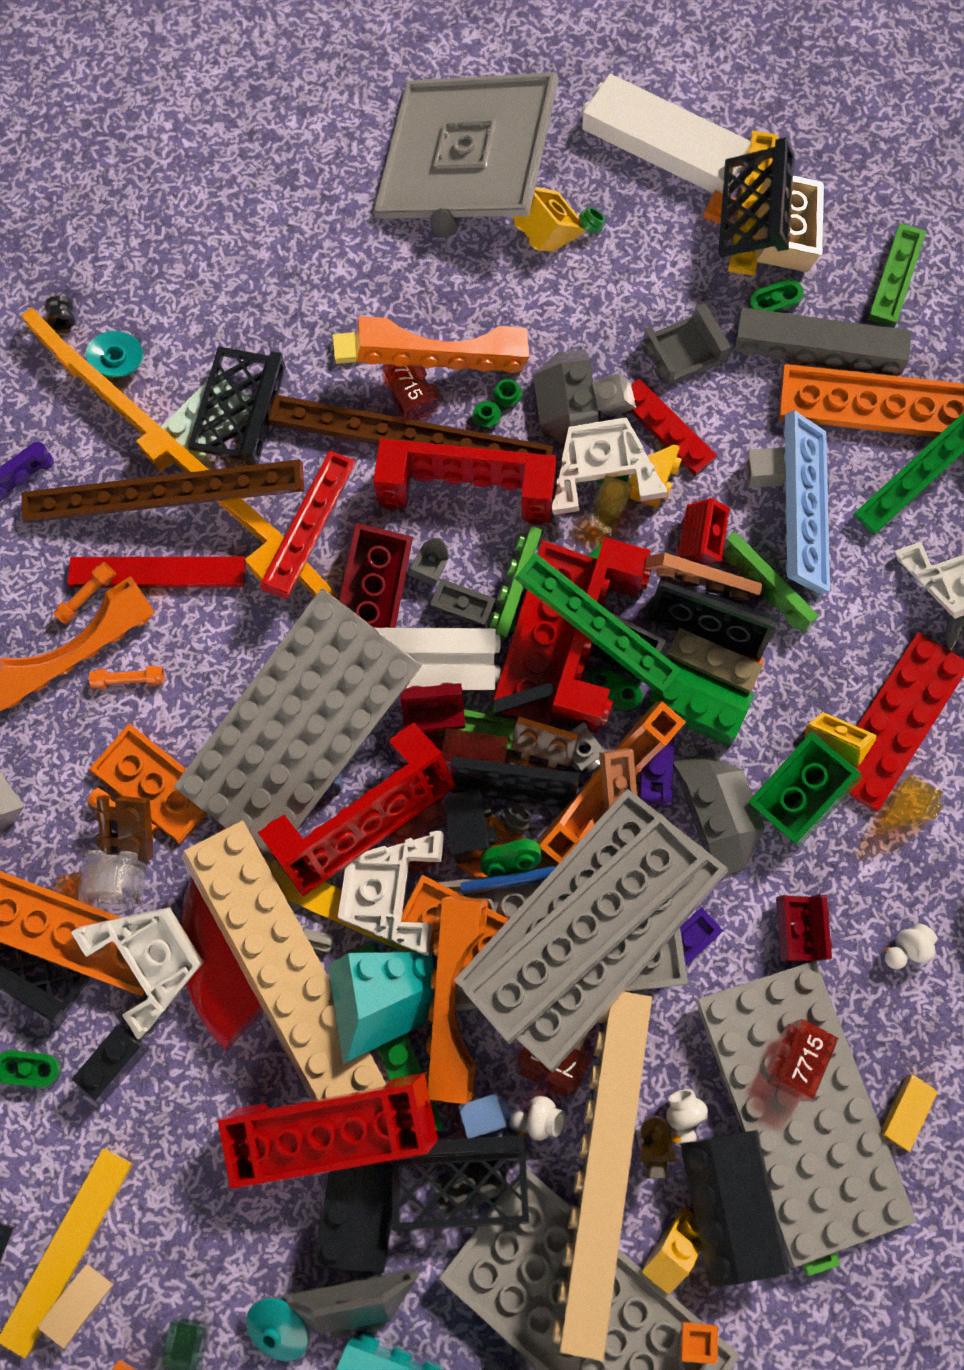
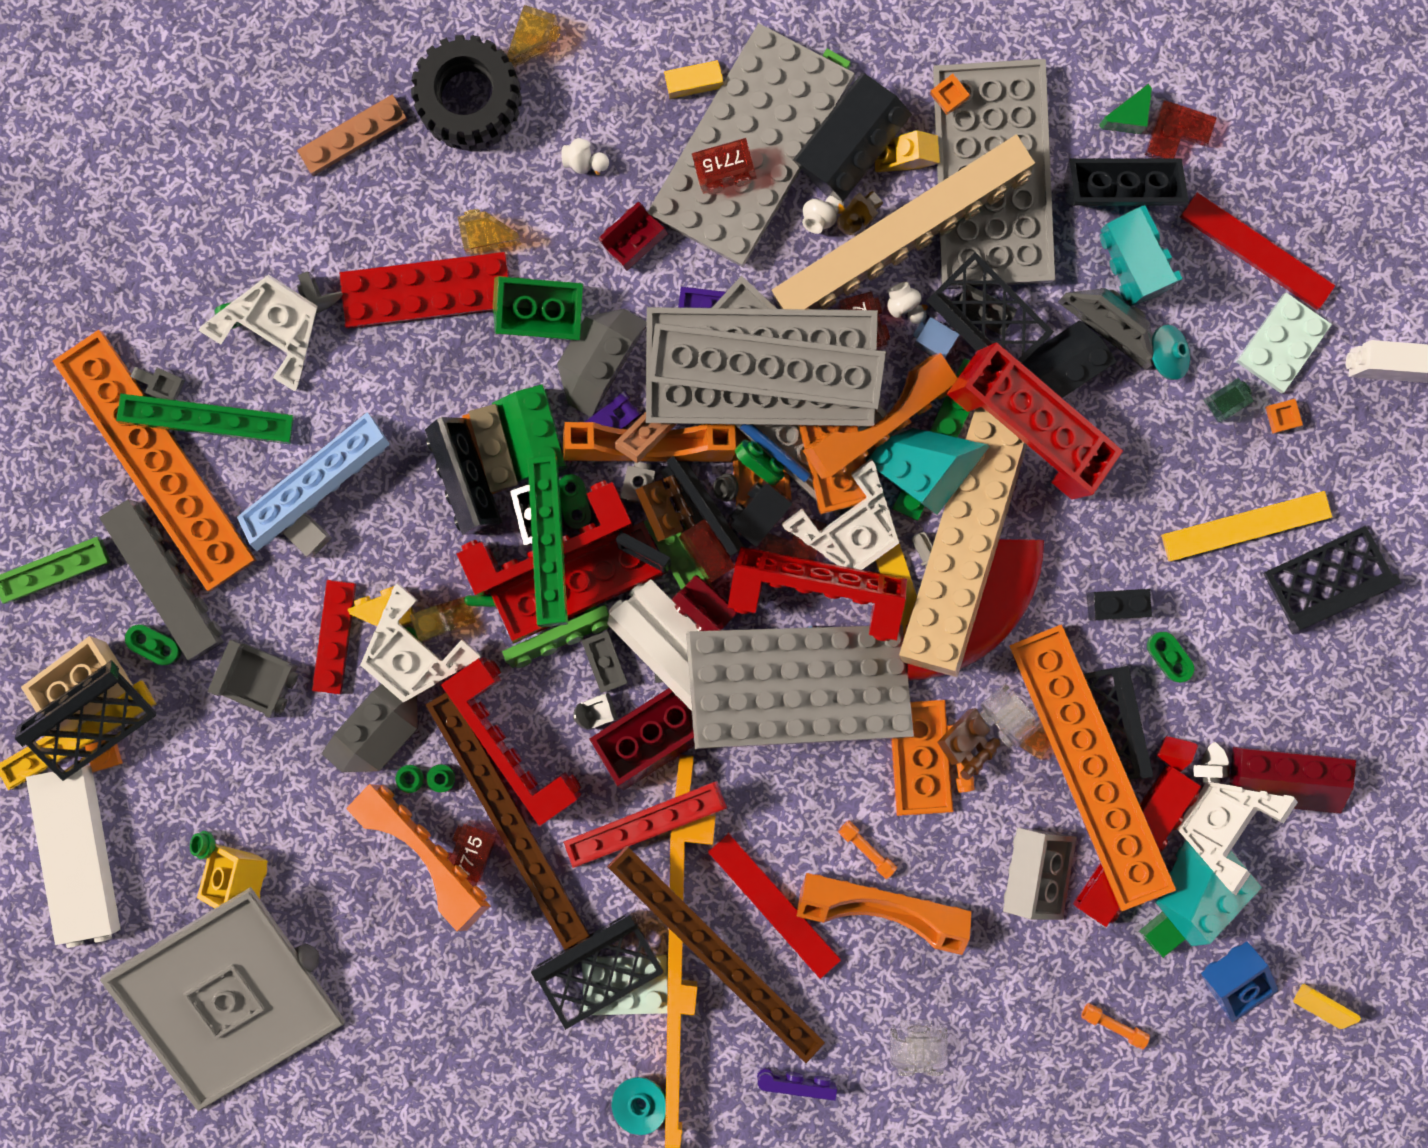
camera: 135 degrees left, 15 degrees up
(67, 611) = (813, 938): orange bar -> none
(75, 1306) = (1270, 488): tan slope -> none
(156, 953) = (1029, 638): white wing -> none
(344, 347) = (476, 936): light yellow tile -> none
(614, 395) = (346, 693): light grey brick -> none
(696, 574) = (447, 510): nougat plate -> none
(704, 531) = (401, 535): red brick -> none
(773, 587) = (401, 448): bright green plate -> none
(842, 737) = (476, 317): yellow slope -> none

